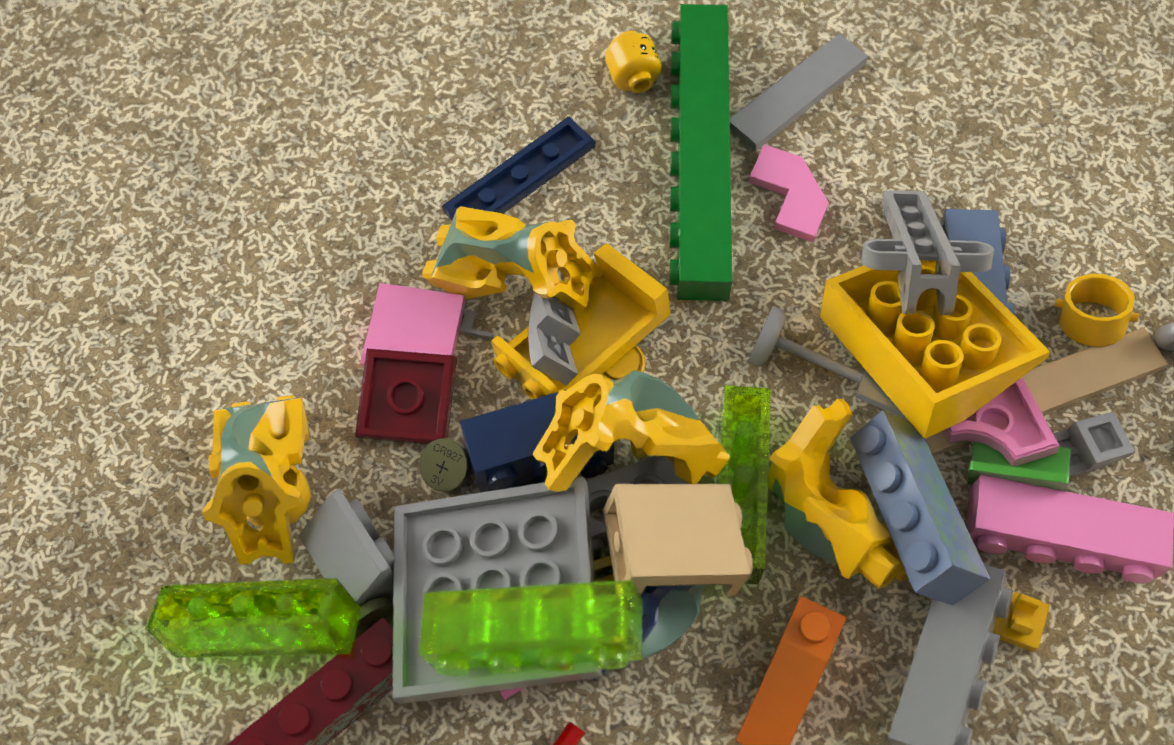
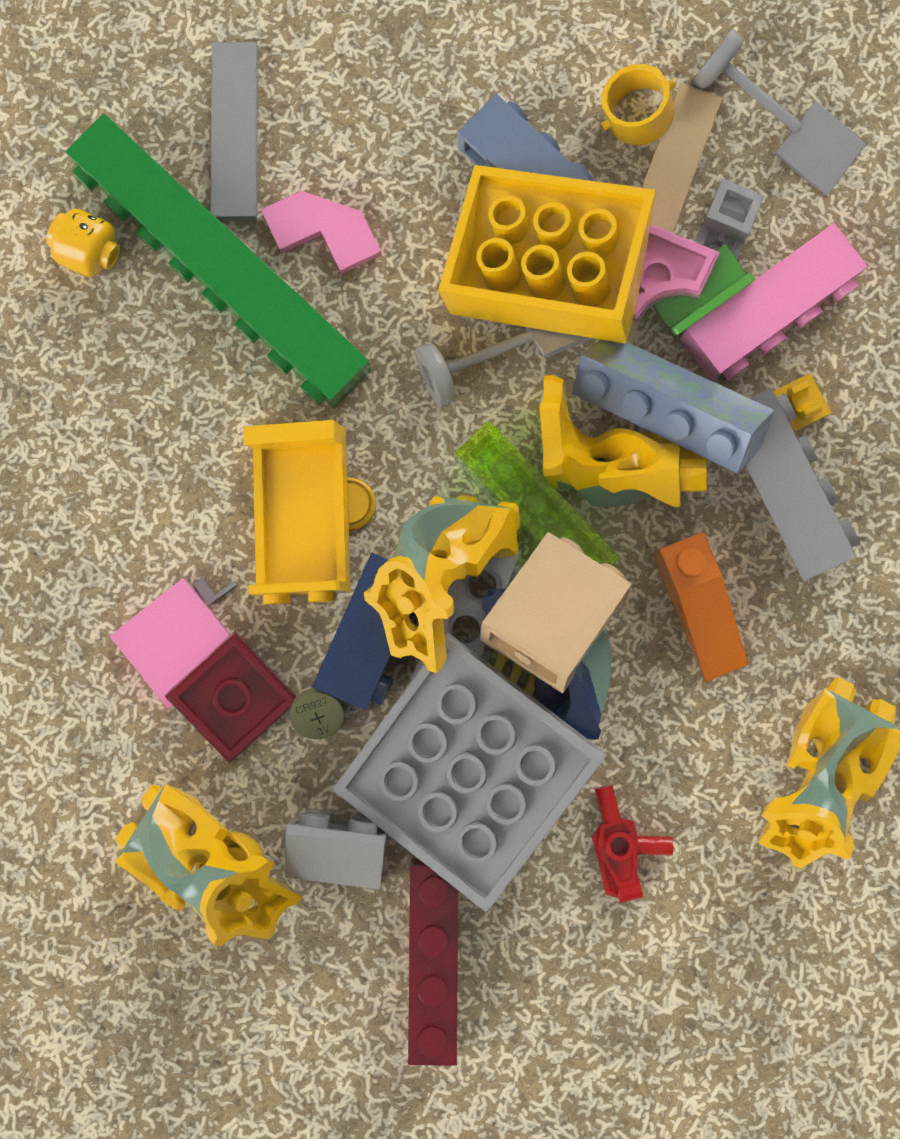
camera: 50 degrees left, 20 degrees up
(255, 618) = (328, 963): clear neon green brick -> none
(372, 612) = (392, 871): olive piece -> none
(477, 261) = (183, 512): yellow hips -> none
(525, 170) = (105, 434): dark blue tile -> none
(532, 627) = (535, 779): clear neon green brick -> none
(550, 336) = (282, 540): light grey slope -> none
(918, 238) = (478, 189): light grey piece -> none

